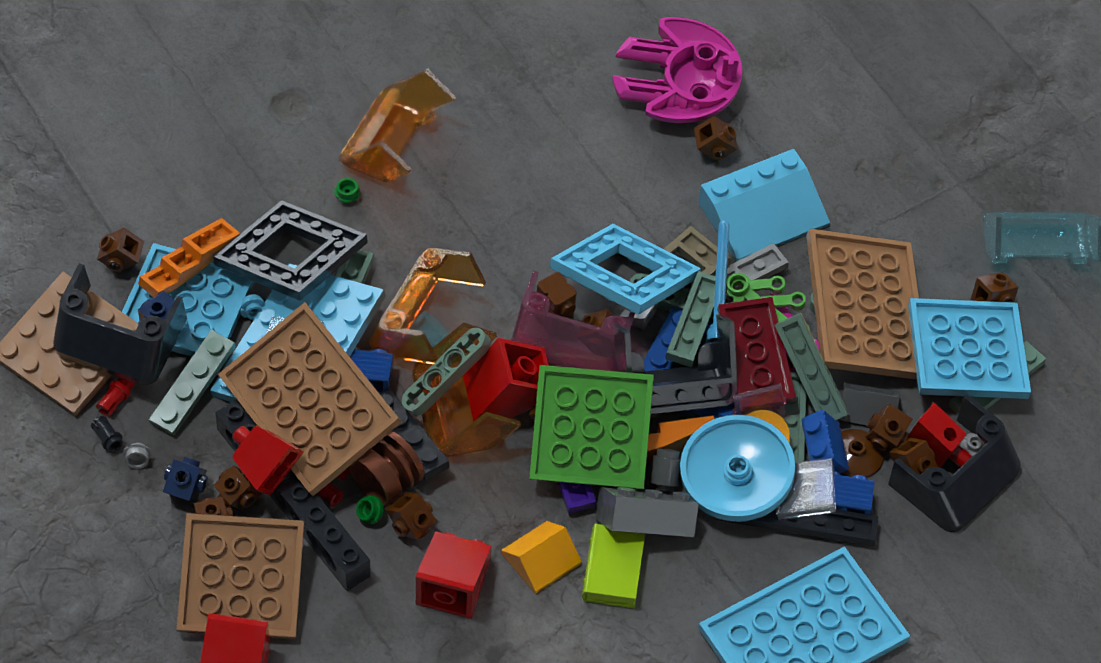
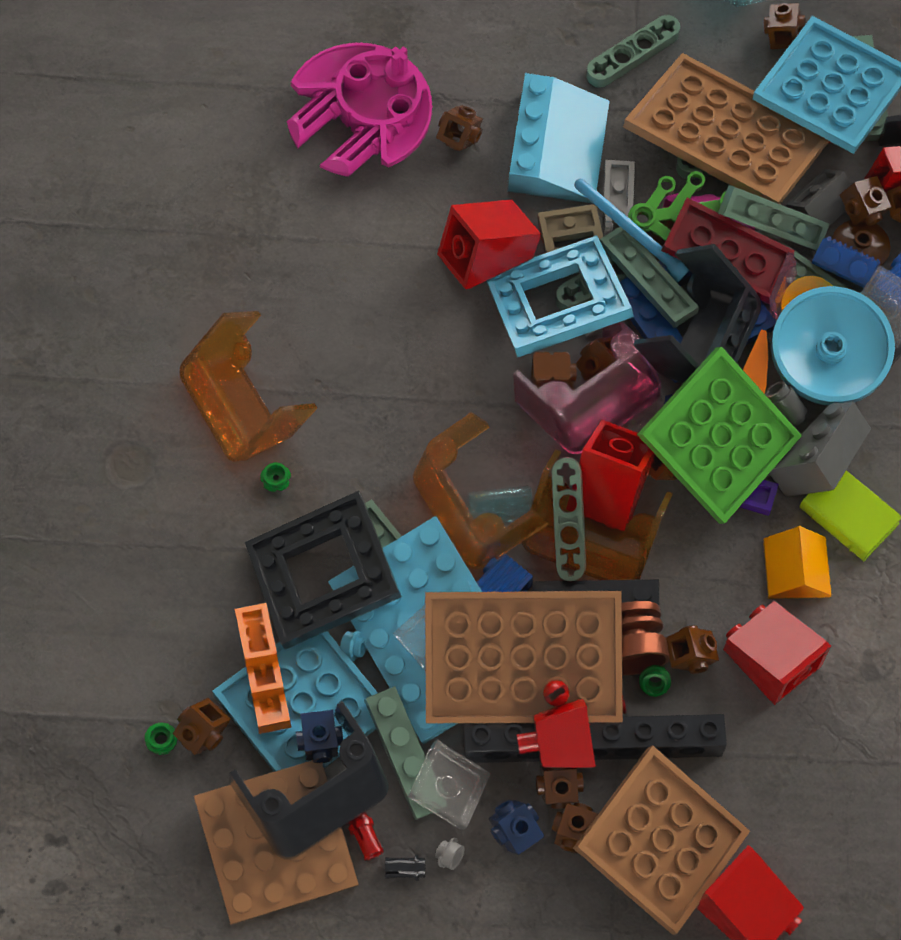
camera: 55 degrees left, 10 degrees up
(94, 232) = (156, 730): none -> green plate
(186, 421) = (449, 785): none -> clear tile
(294, 438) = (552, 686): none -> red hinge
(638, 204) = (486, 240): none -> red slope
(887, 209) = (630, 48): none -> sand green beam

